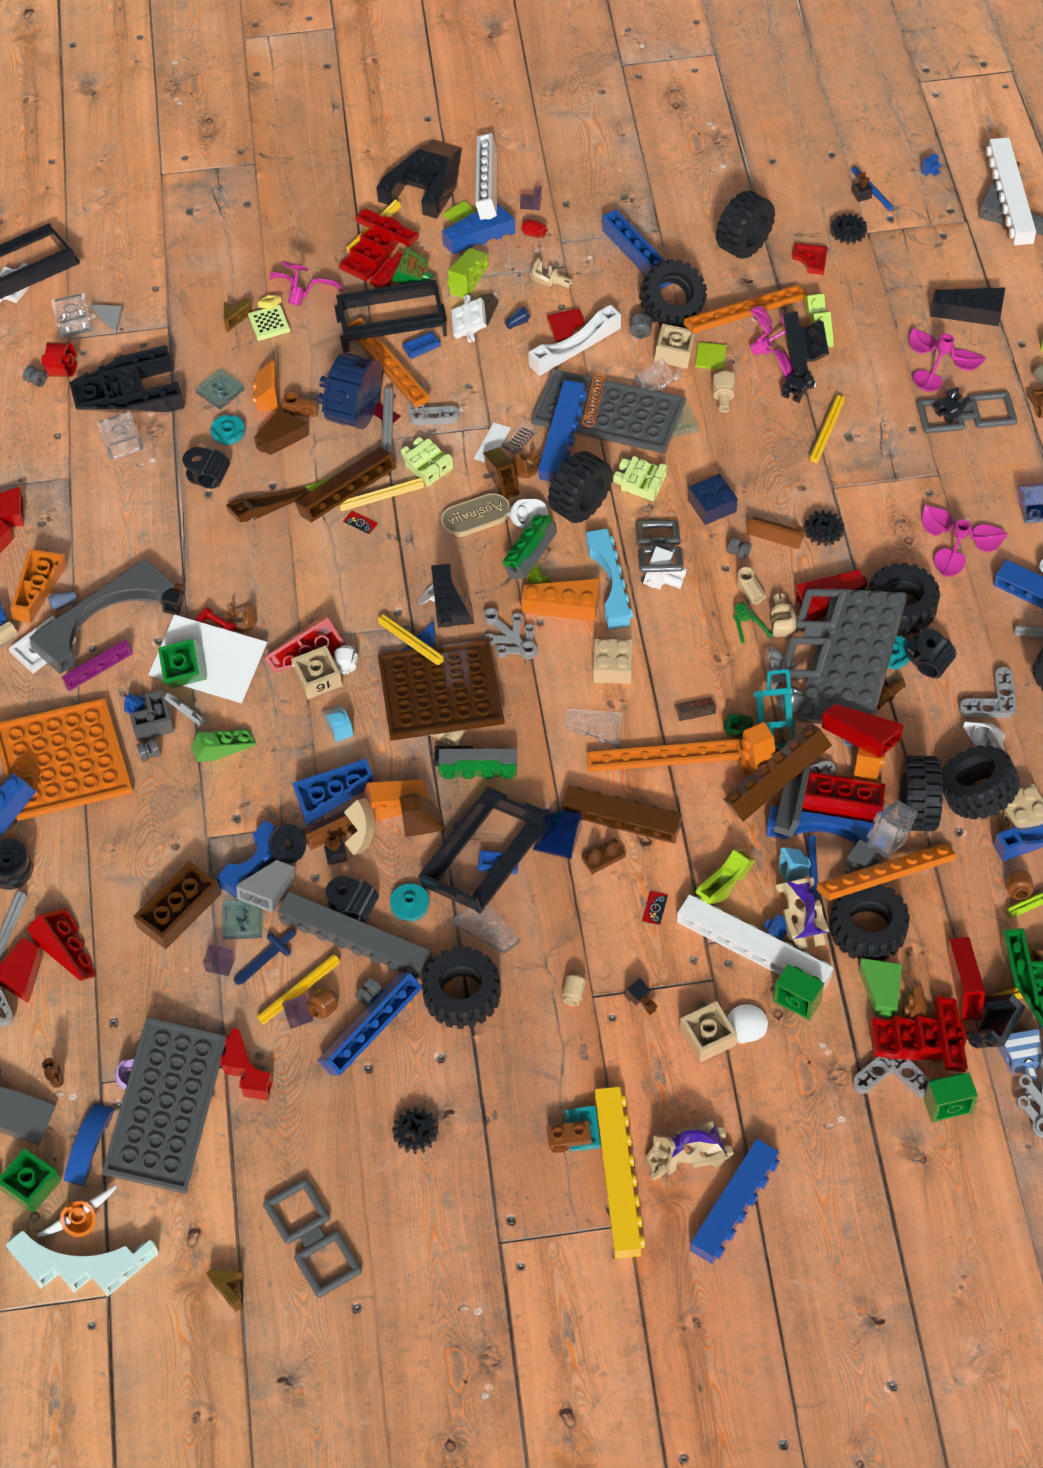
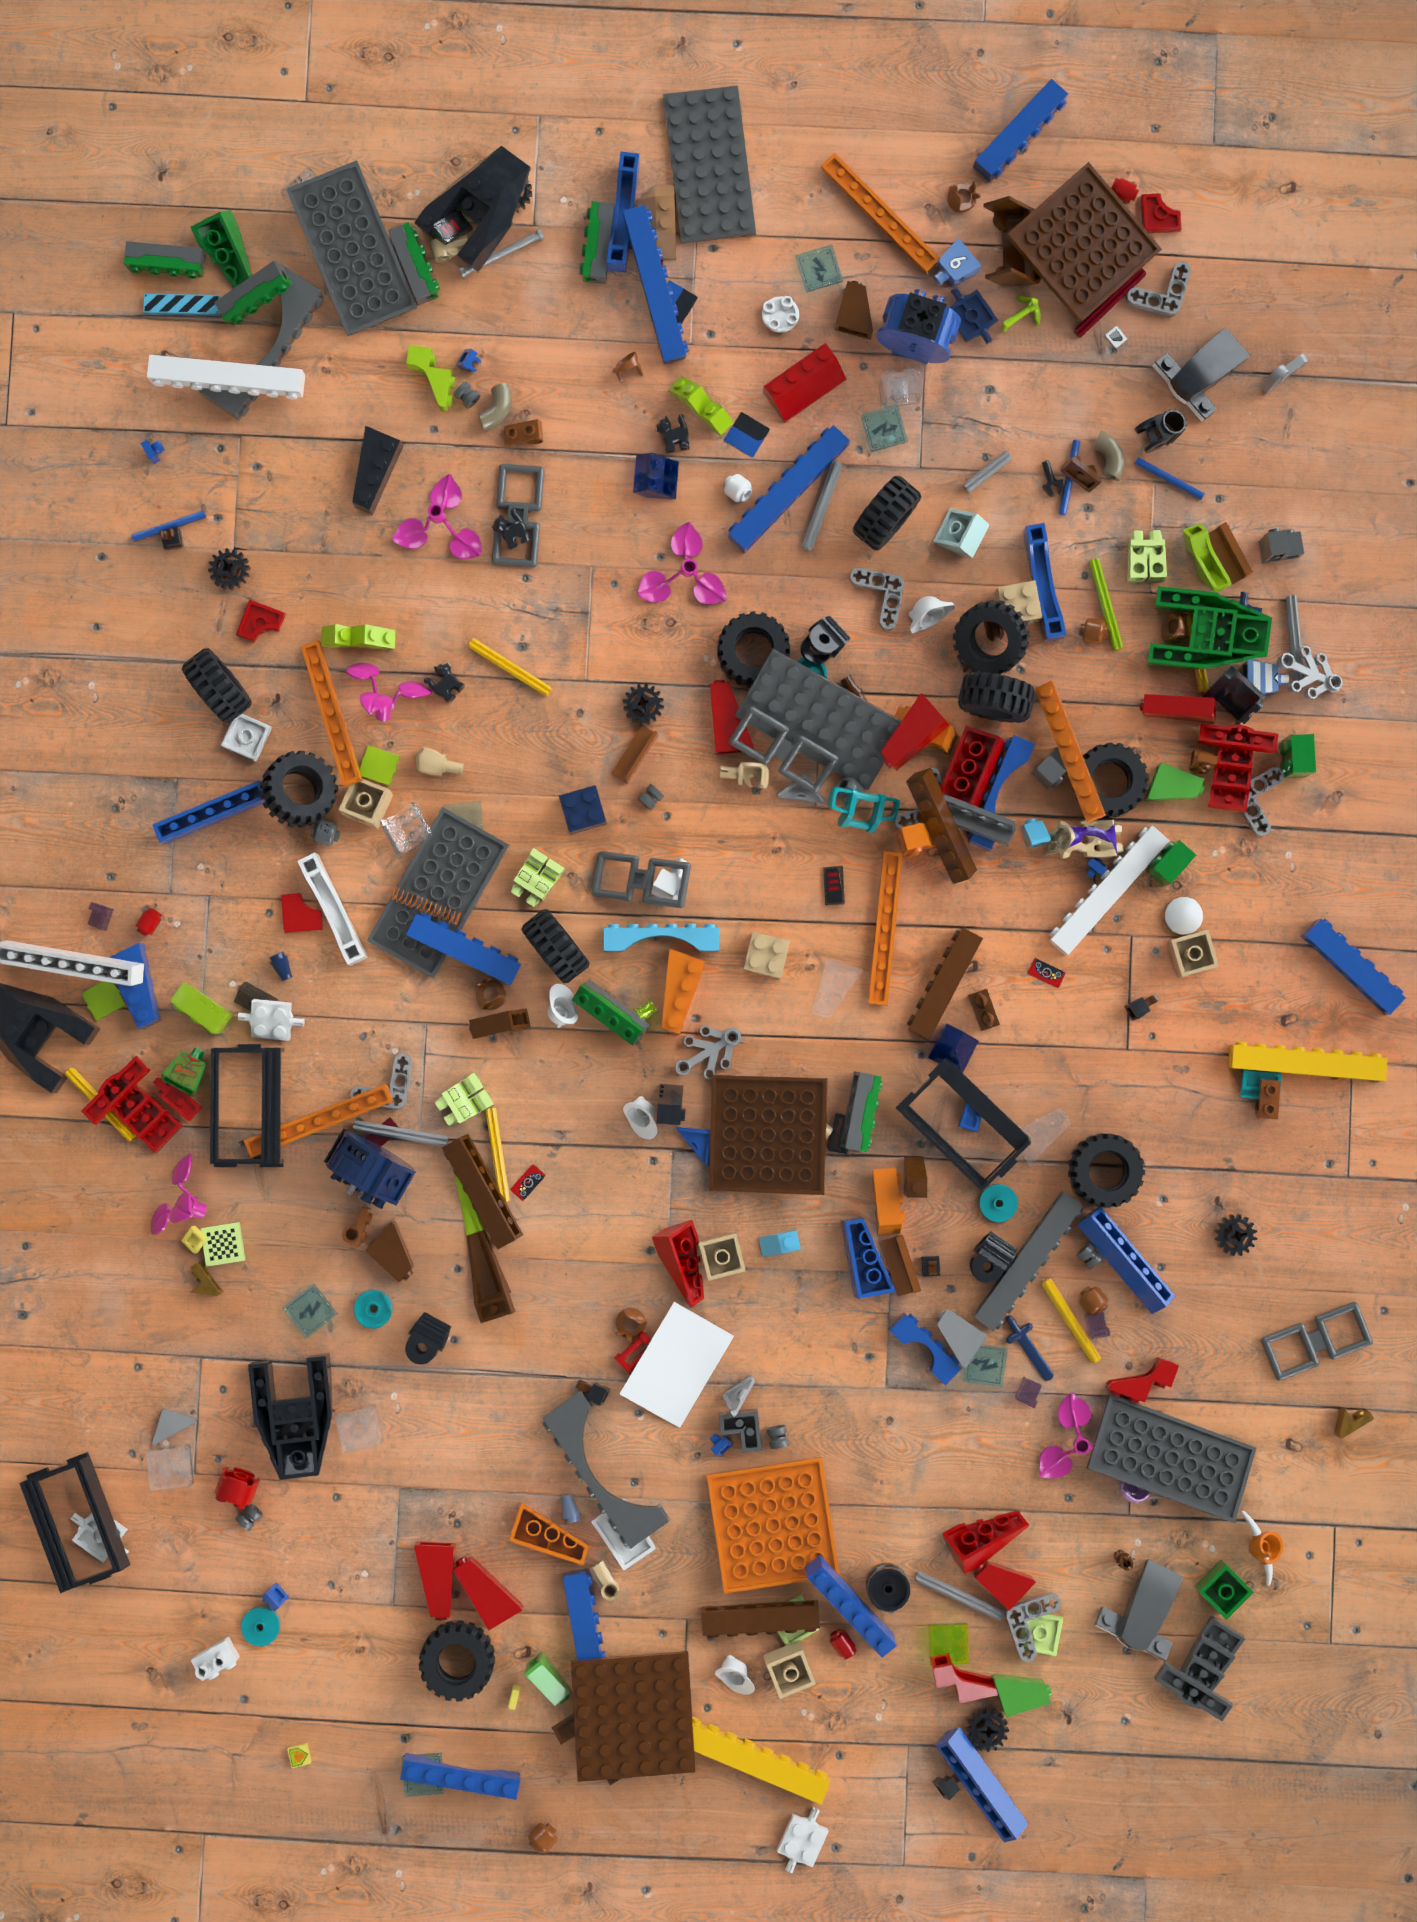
camera: 85 degrees left, 30 degrees up
(86, 1144) = (1189, 1531): blue slope -> none
(97, 665) = (663, 1479): magenta tile -> none
(106, 1270) = (1317, 1528): light aqua arch -> none
(152, 998) = (1053, 1460): none -> dark pink plant
(177, 905) = (965, 1426): reddish brown brick -> none
(182, 663) = (686, 1392): green brick -> none
(218, 744) = (784, 1361): bright green slope -> none
(266, 388) = (328, 1260): orange slope -> none
(297, 841) = (926, 1308): black tile -> none
(346, 659) = (709, 1224): white head -> none
(362, 818) = (913, 1236): tan brick -> none
(410, 639) = (699, 1154): yellow axle -> none
(421, 345) = (297, 1079): blue plate -> none
(475, 515) = (546, 1060): tile -> none
(493, 440) = (448, 1024): white sticker -> none
(519, 437) = (450, 995): clear tile -> none
(551, 278) = (230, 919): tan piece -> none
(573, 989) = (1122, 1066): tan brick -> none
(701, 1139) = (1298, 980): tan hips -> none
(710, 263) = (246, 736): none -> white plate
(722, 882) = (1039, 901): lime arch -> none
(733, 721) = (874, 849): dark green brick -> none
(744, 613) = (732, 810): green plant -> none
(750, 585) = (704, 797): tan piece -> none
(804, 343) = (393, 662): black plate -> none
(813, 869) = (1039, 816): blue bar -> none
(891, 828) = (1038, 736): clear brick -> none

